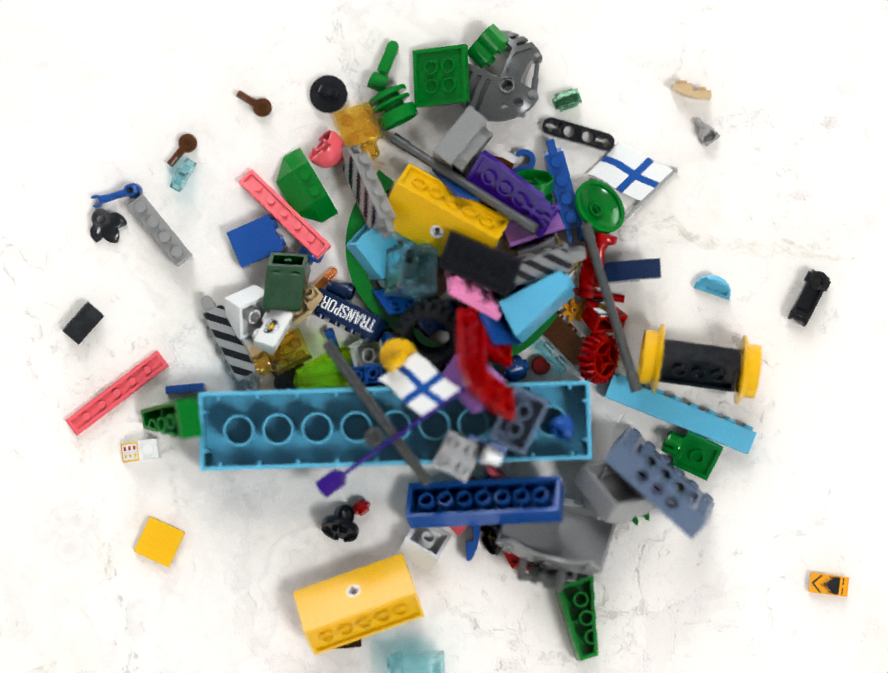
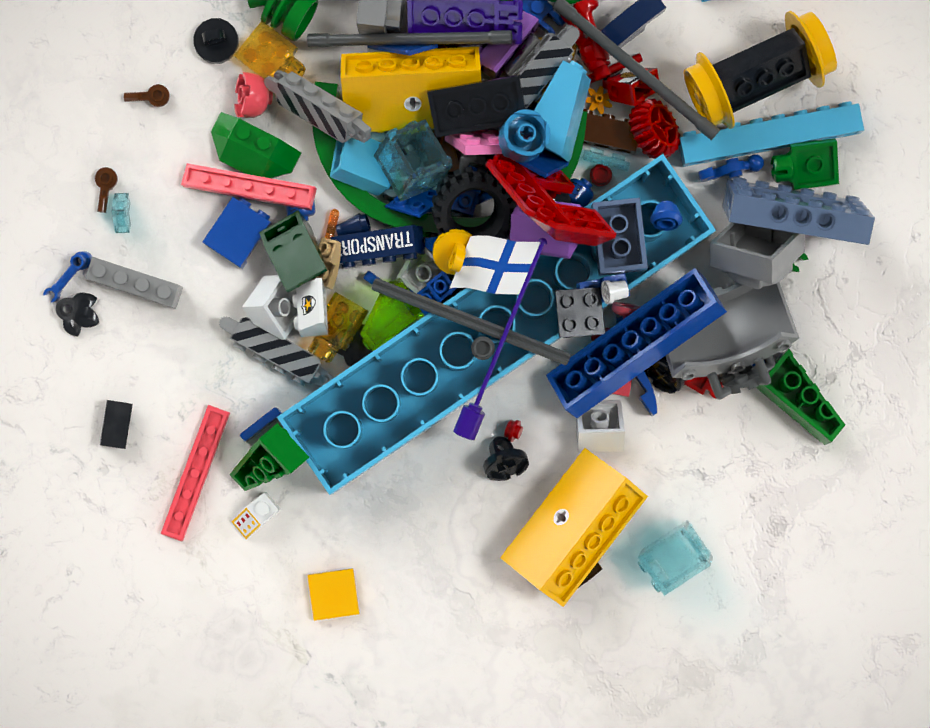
camera: 30 degrees left, 0 degrees up
(507, 303) = (533, 127): none -> dark azure brick
(638, 421) = (732, 168): none -> blue piece

